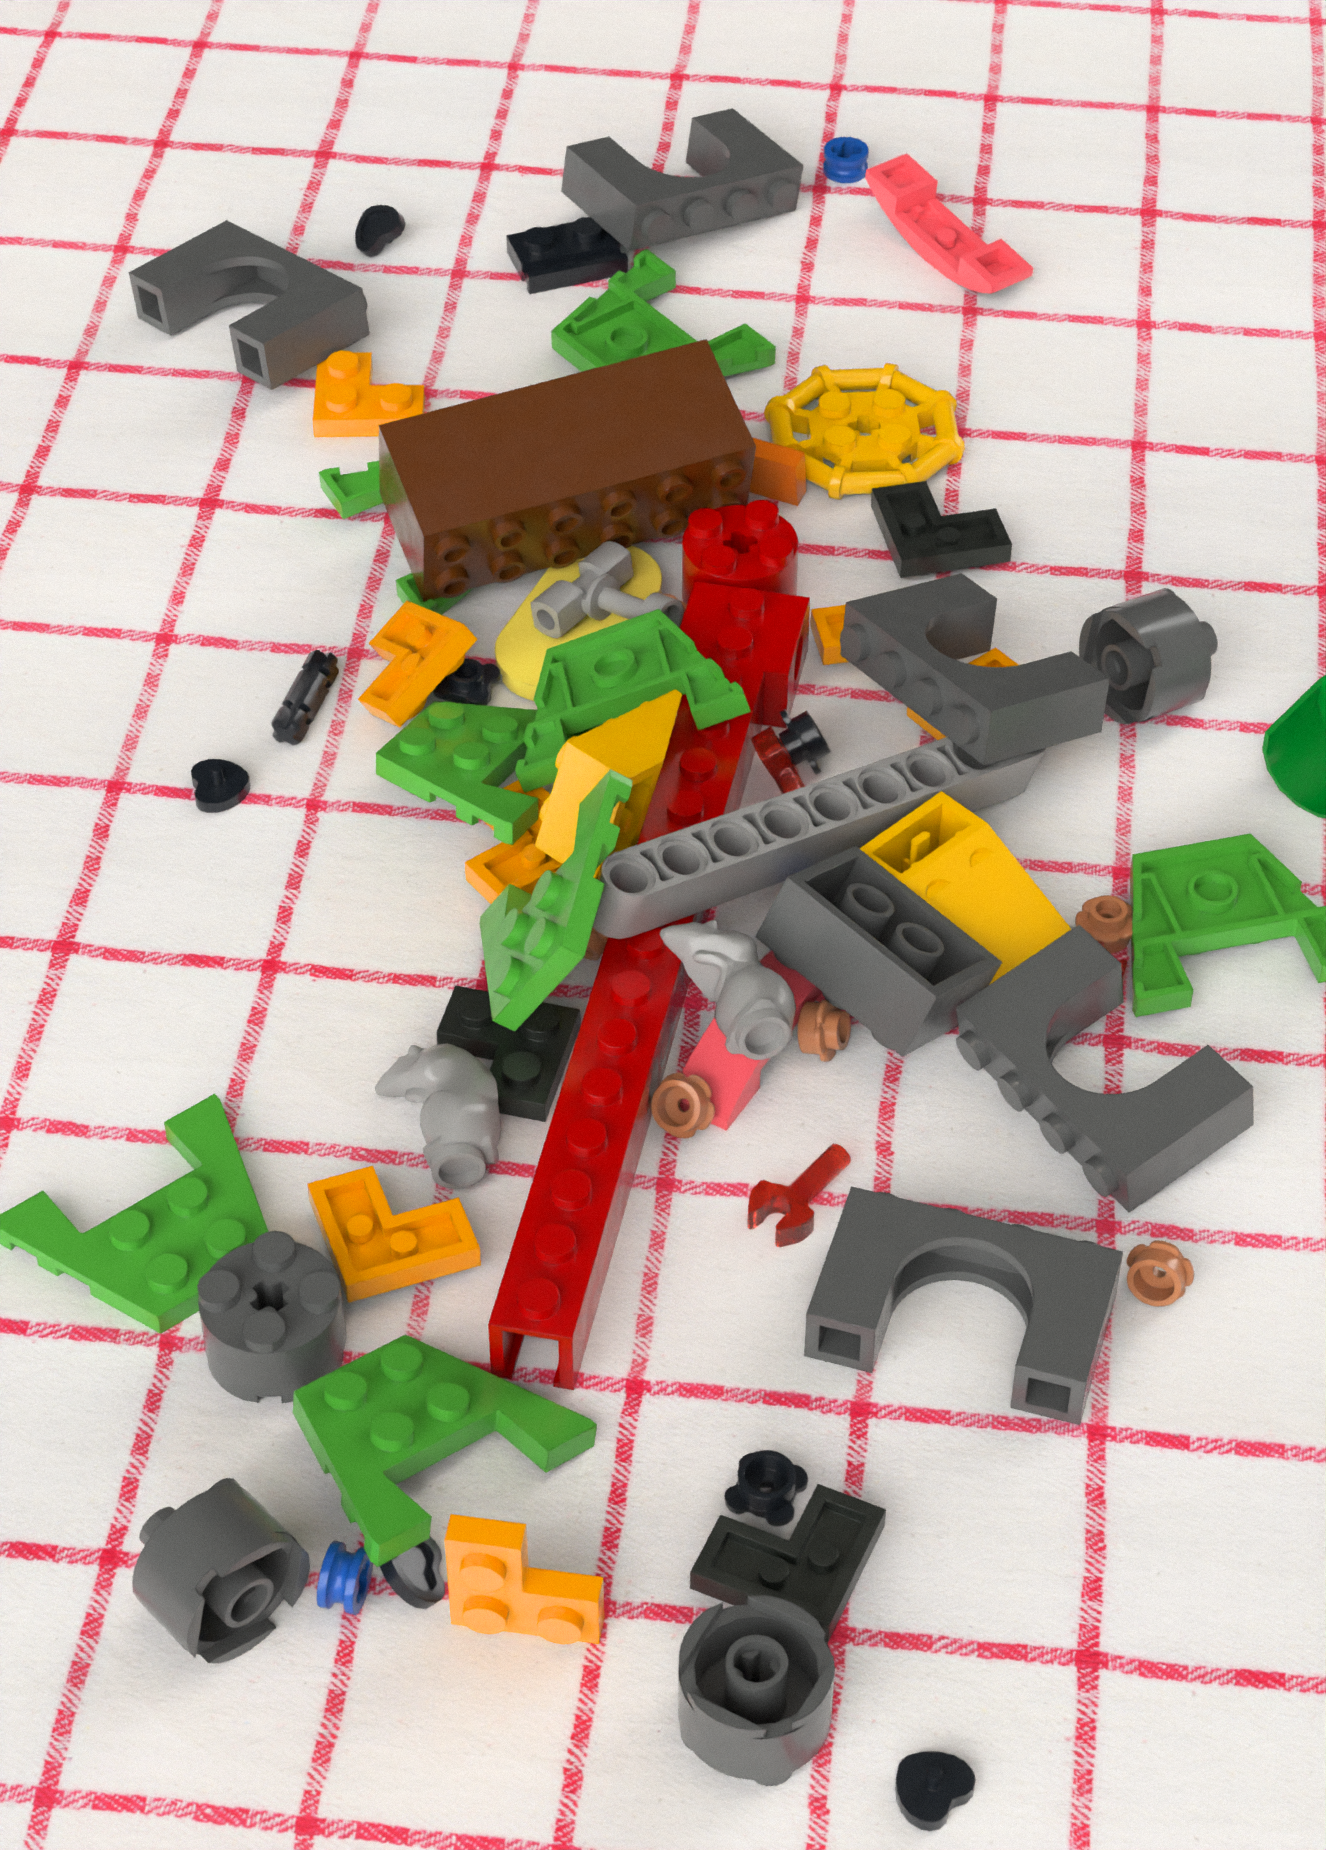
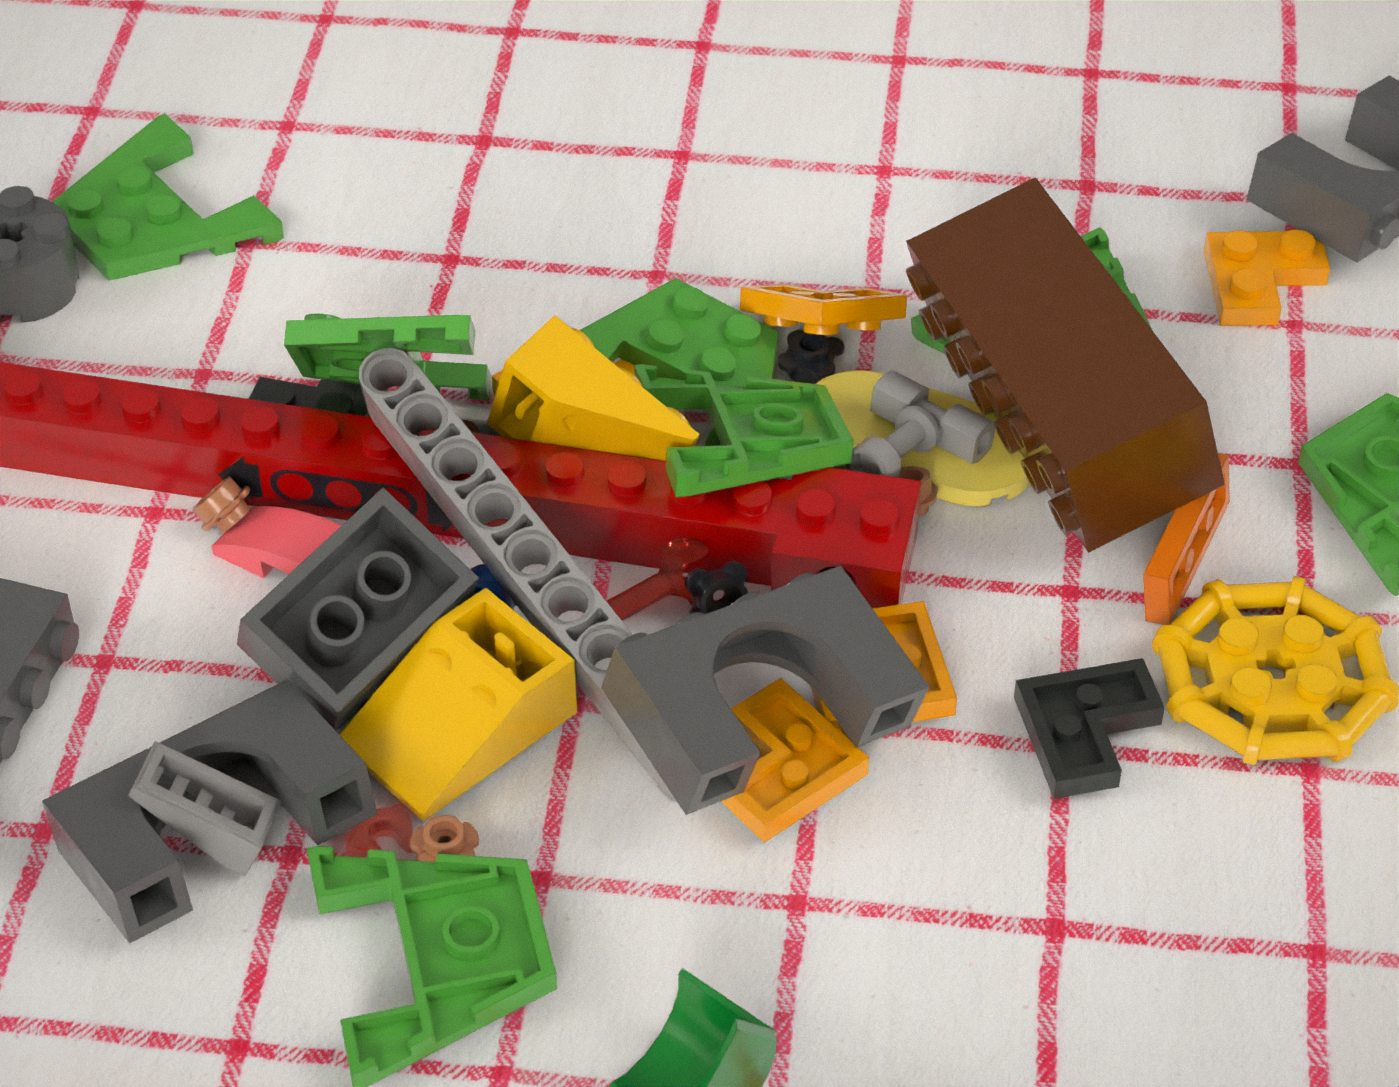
camera: 90 degrees right, 0 degrees up
(219, 785) = (676, 211): black piece -> none
(305, 697) = (789, 252): black axle -> none
(384, 1250) = (95, 319): light orange plate -> none
(457, 1111) = (219, 357): light grey animal -> none
(740, 549) = (987, 541): red brick -> none
(751, 1001) = (300, 516): light grey animal -> none
(794, 1199) = (109, 590): clear red bar -> none
(1116, 1051) = (241, 813): none -> light grey slope
(1151, 653) = (833, 879): dark grey brick -> none

